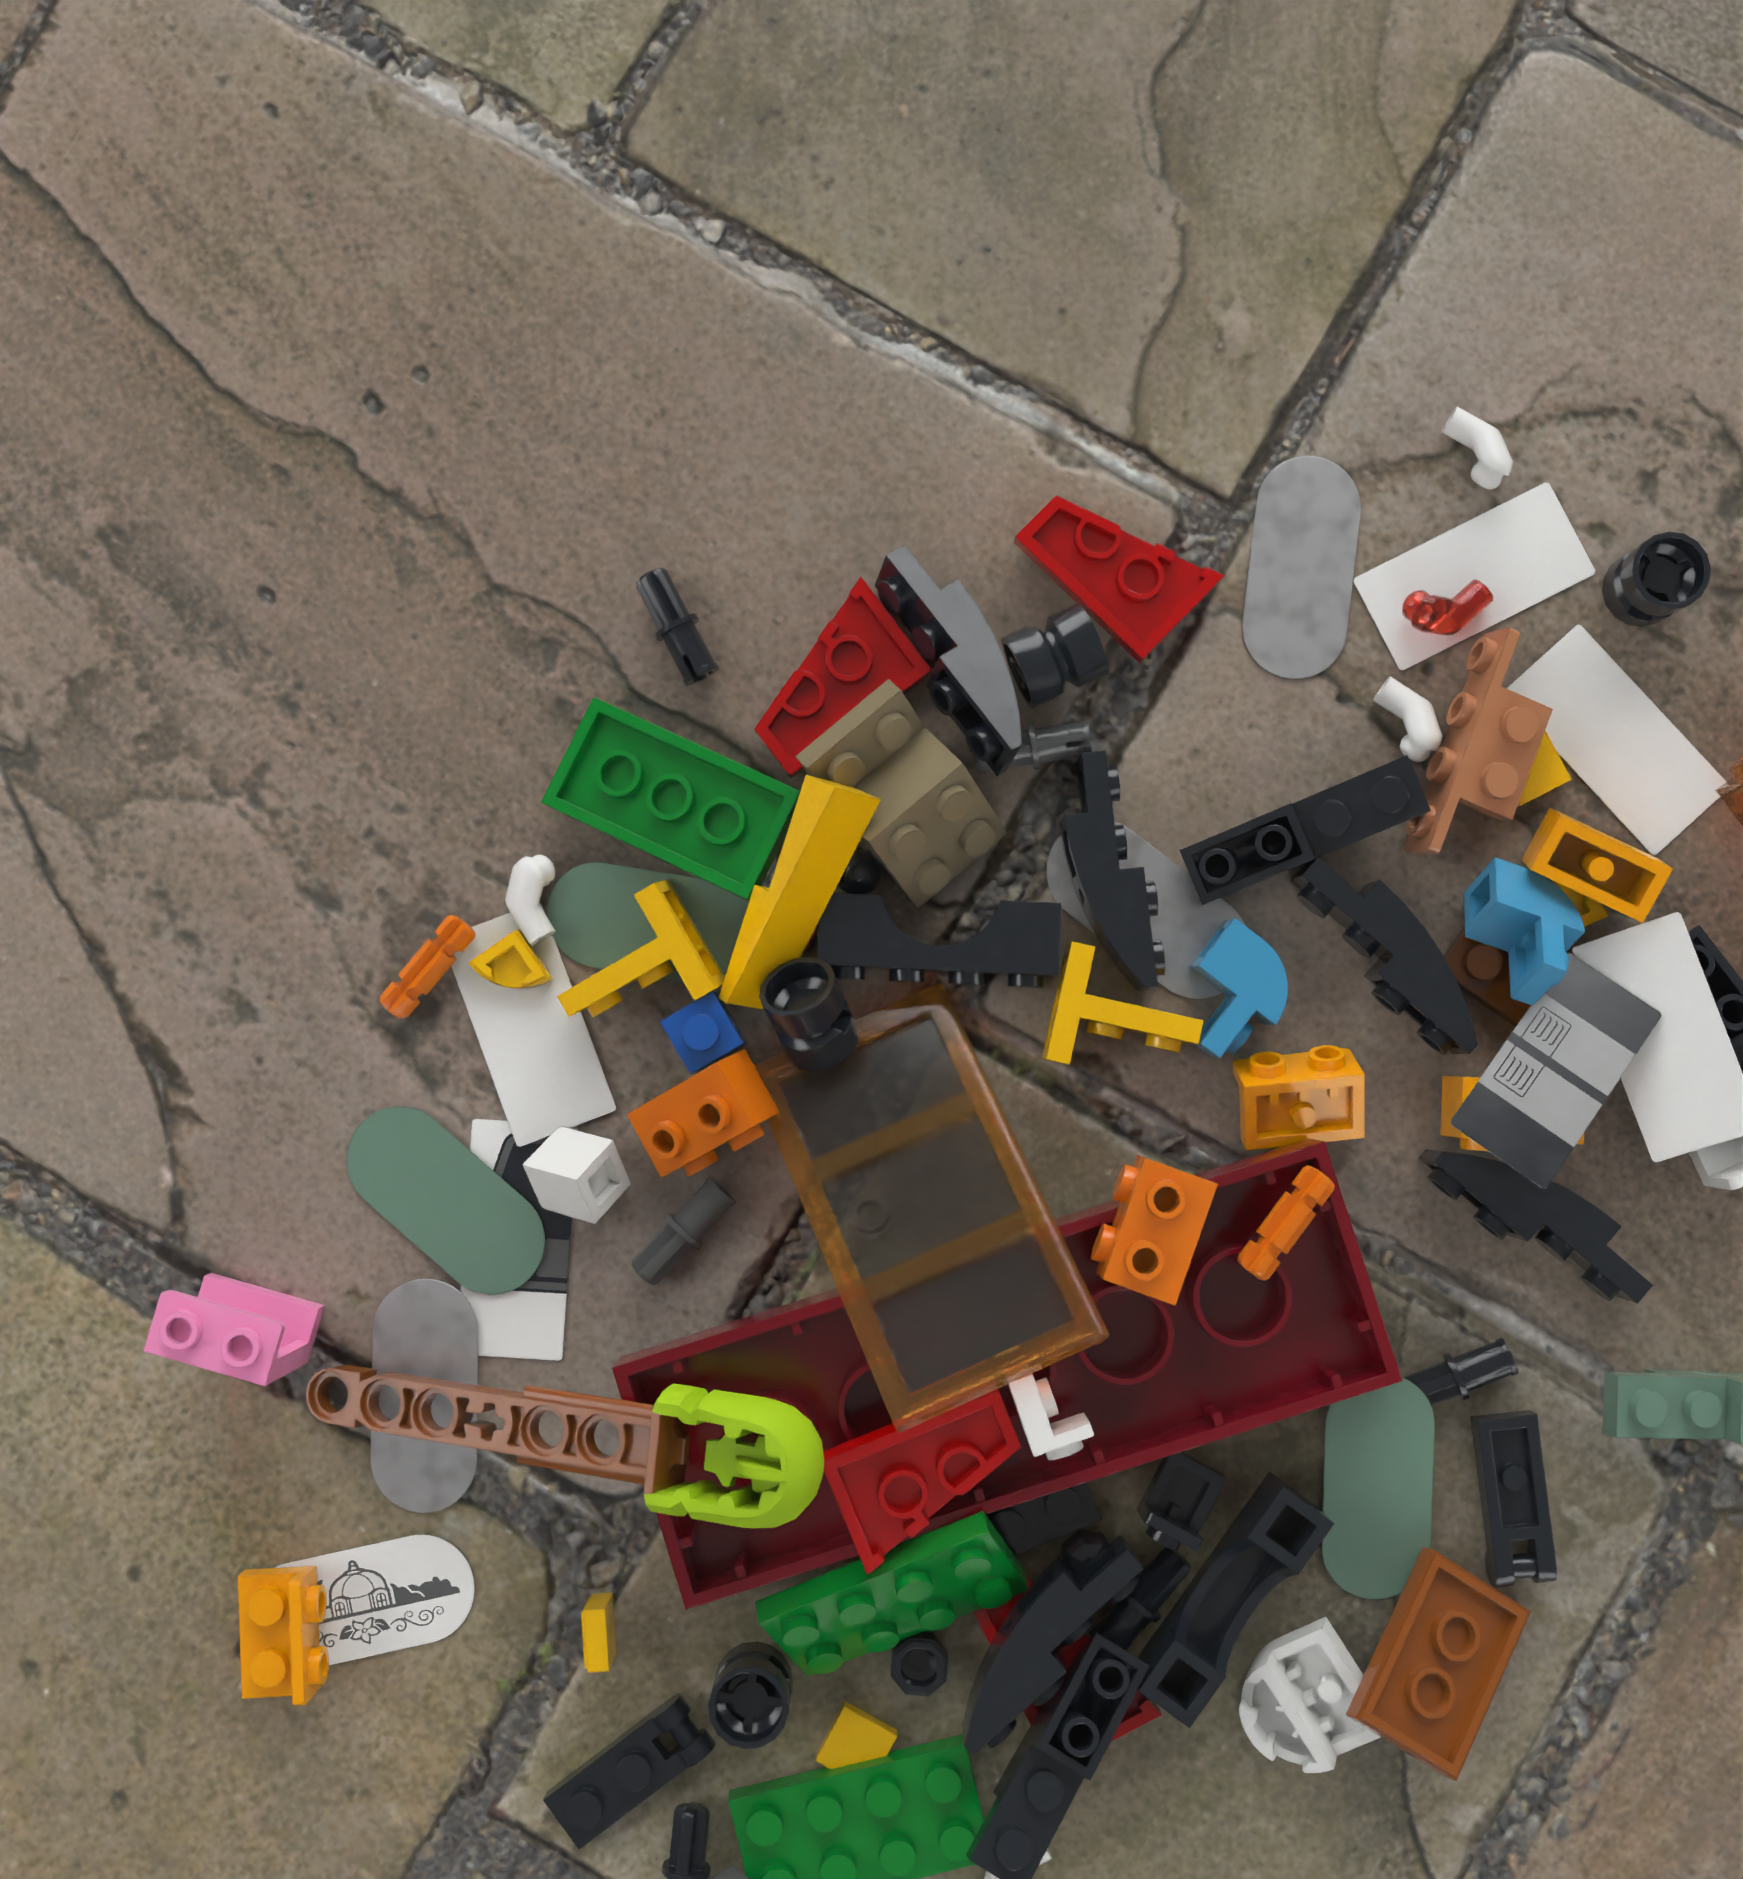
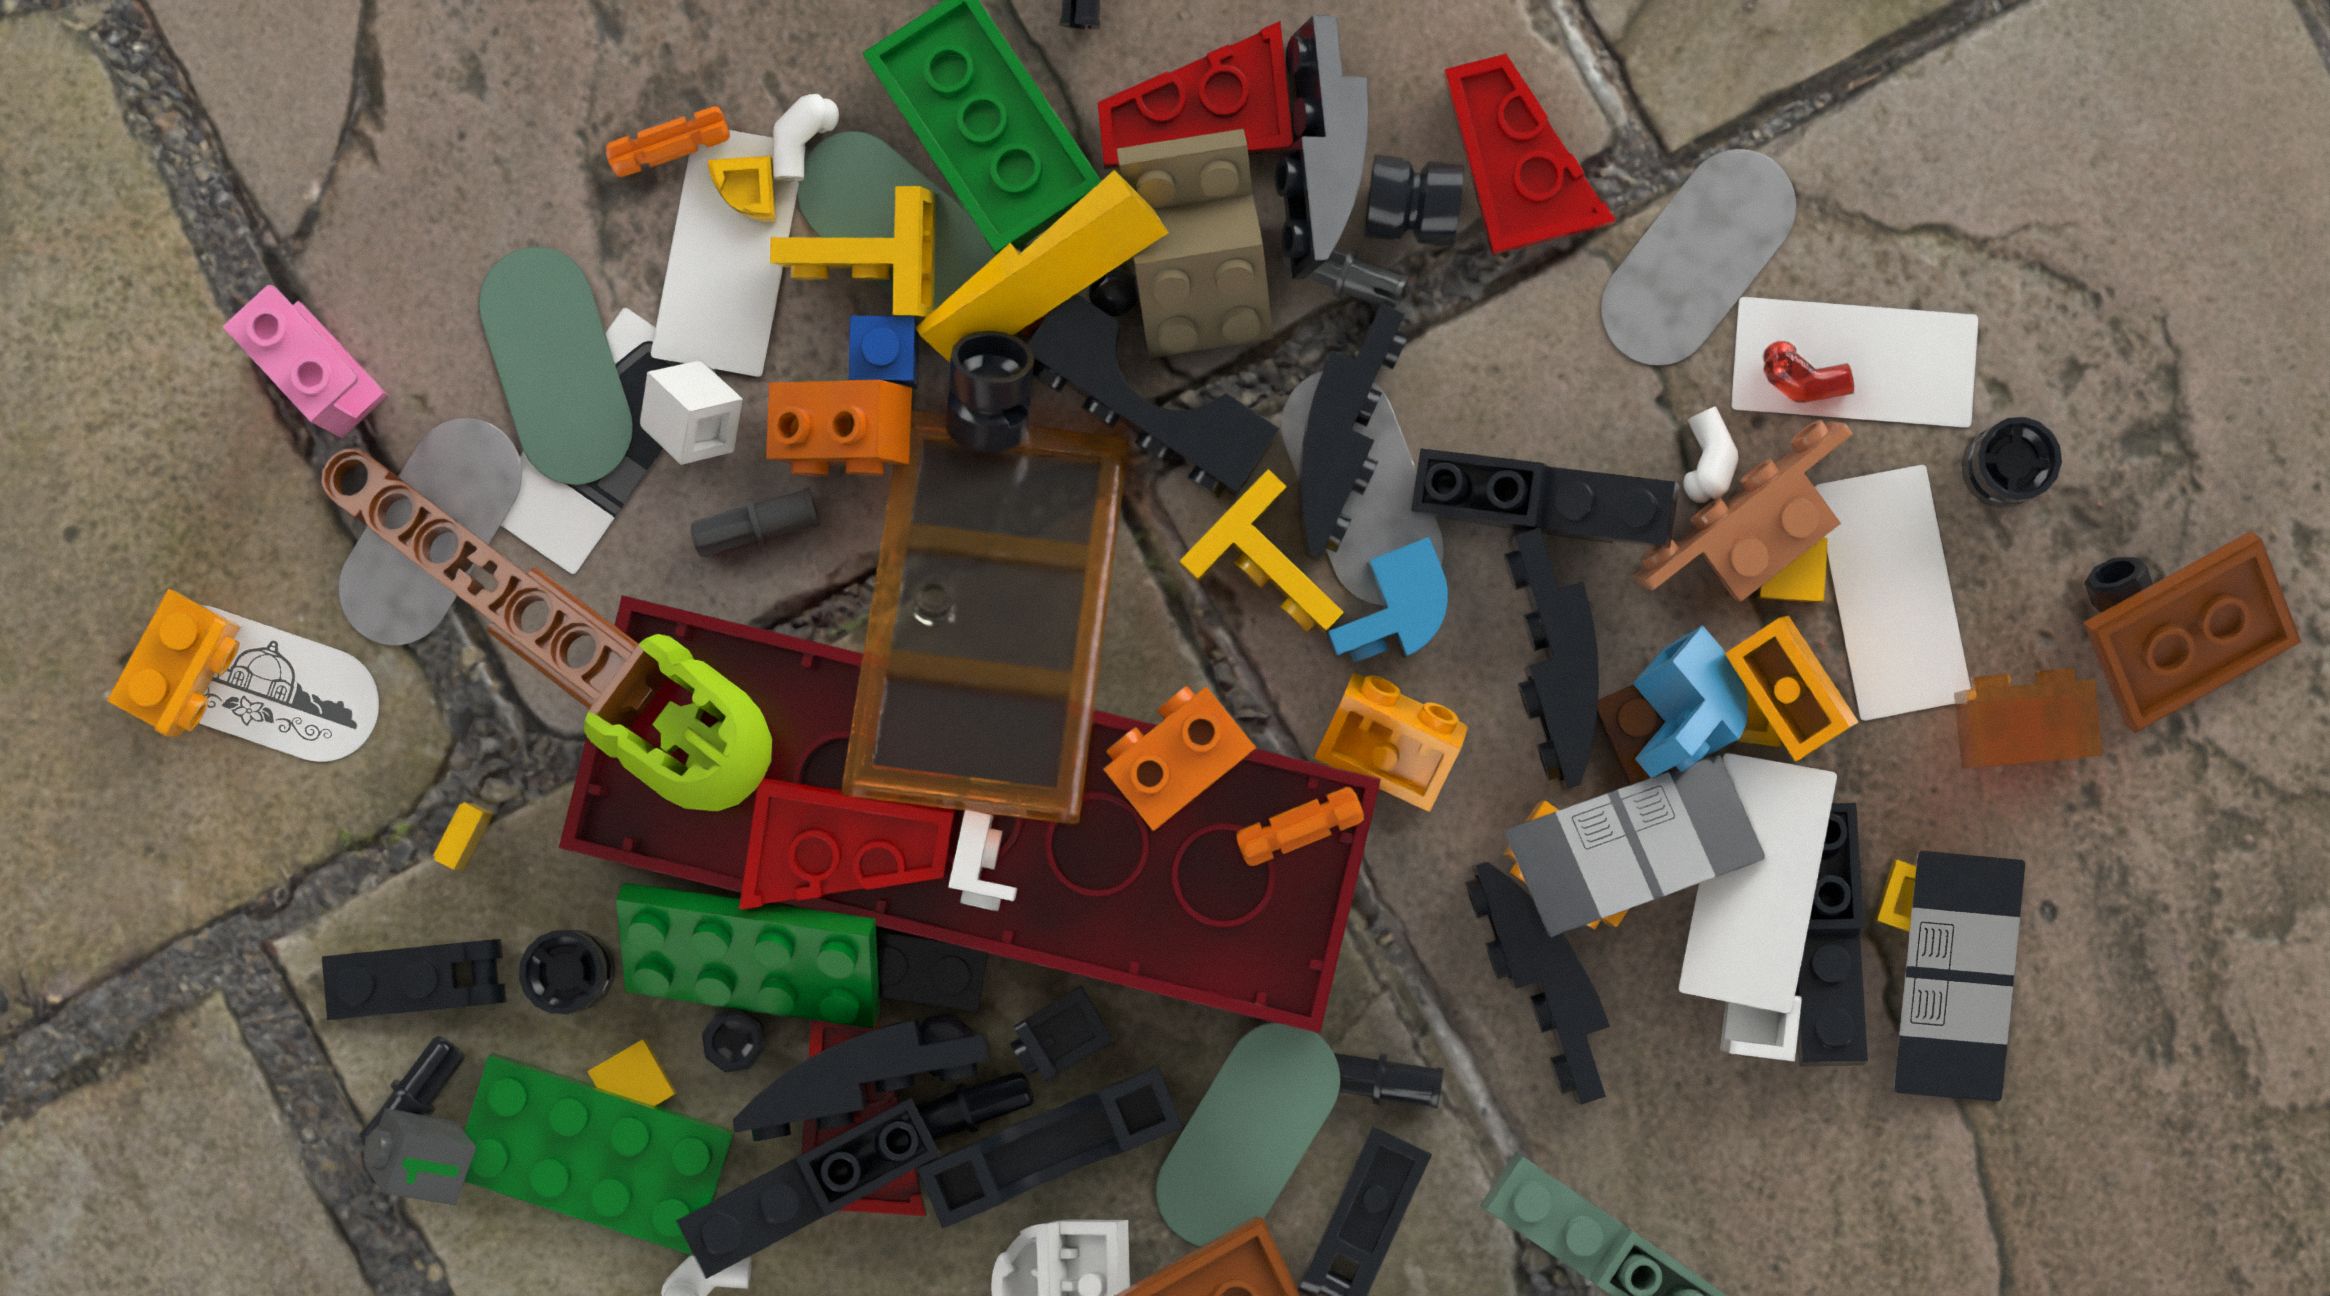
camera: 30 degrees right, 0 degrees up
(1485, 442) = (1938, 245): white arm -> none

